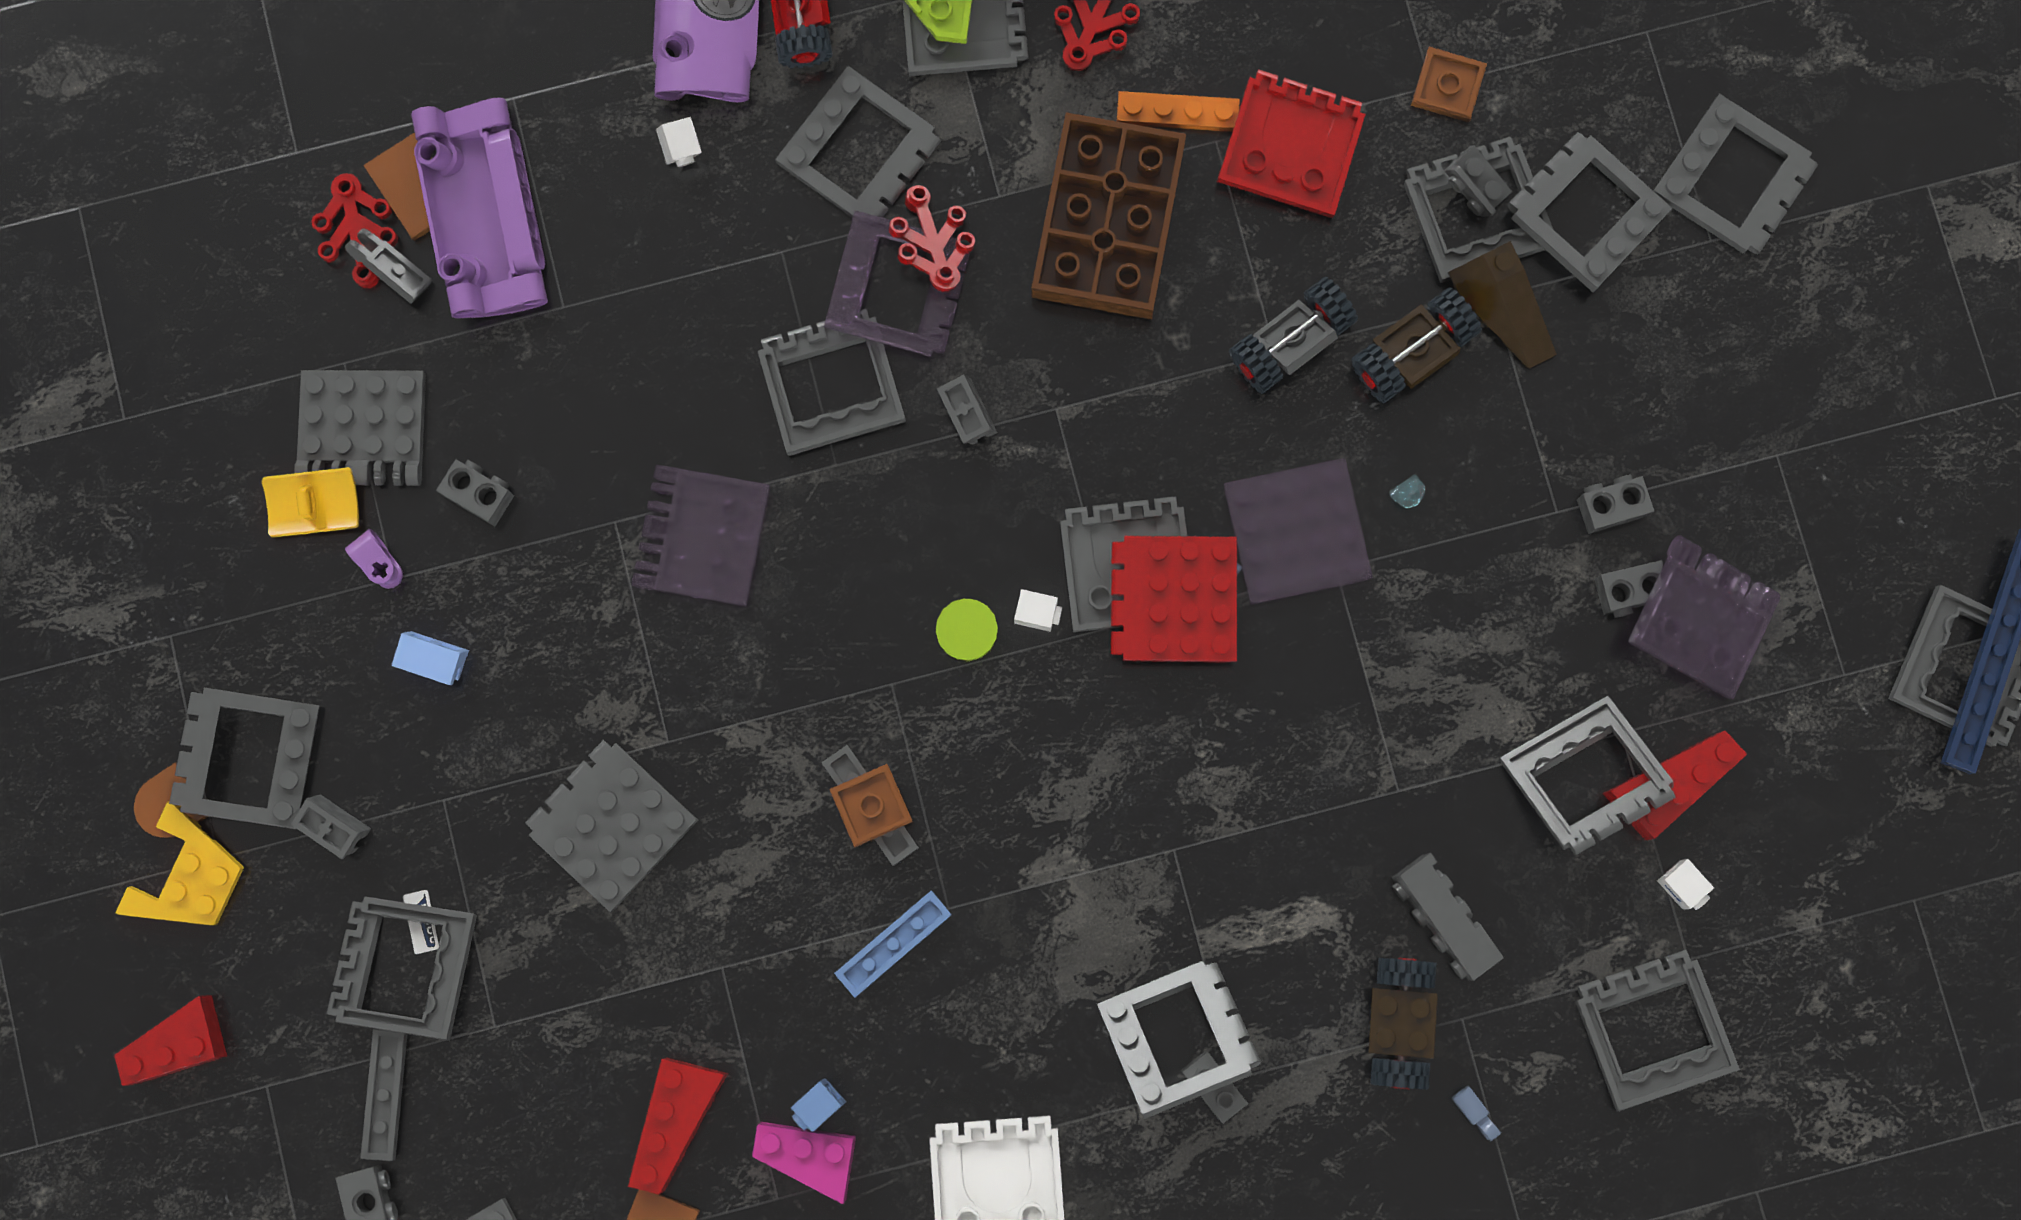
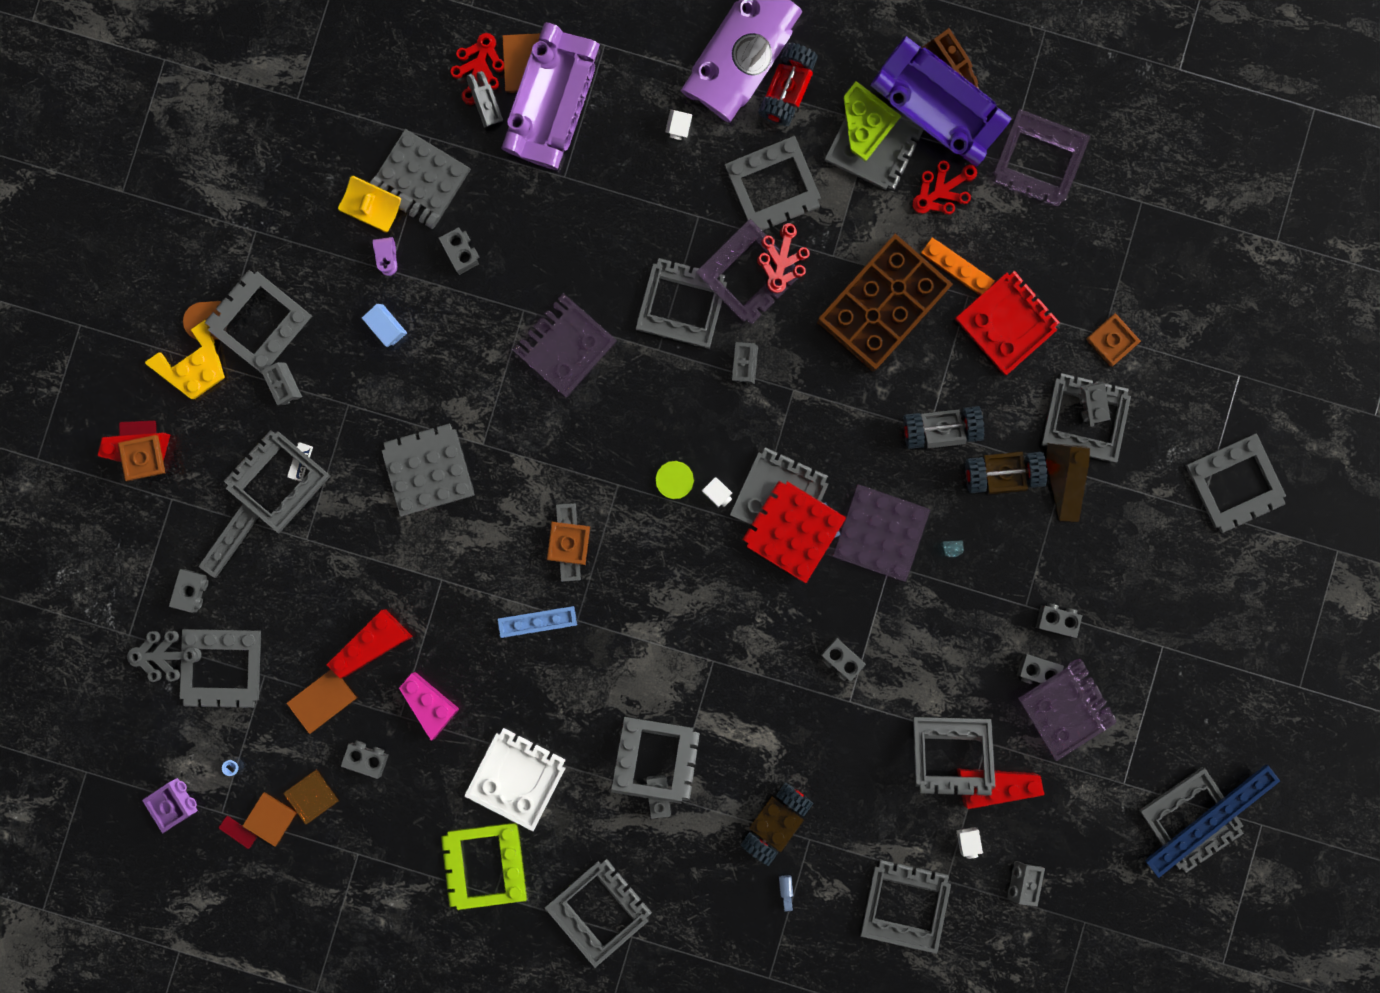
camera: 30 degrees right, 5 degrees up
(157, 1012) = (137, 428): none -> dark red sticker
(188, 1049) = (141, 458): none -> dark orange tile
(817, 1106) = (448, 682): medium blue brick -> none
(1353, 729) = (846, 655): none -> dark grey brick
(1446, 918) = (833, 783): dark grey wedge -> none
(1618, 241) = (1150, 481): dark grey hinge -> none
(1799, 896) = (1026, 884): none -> dark grey bracket

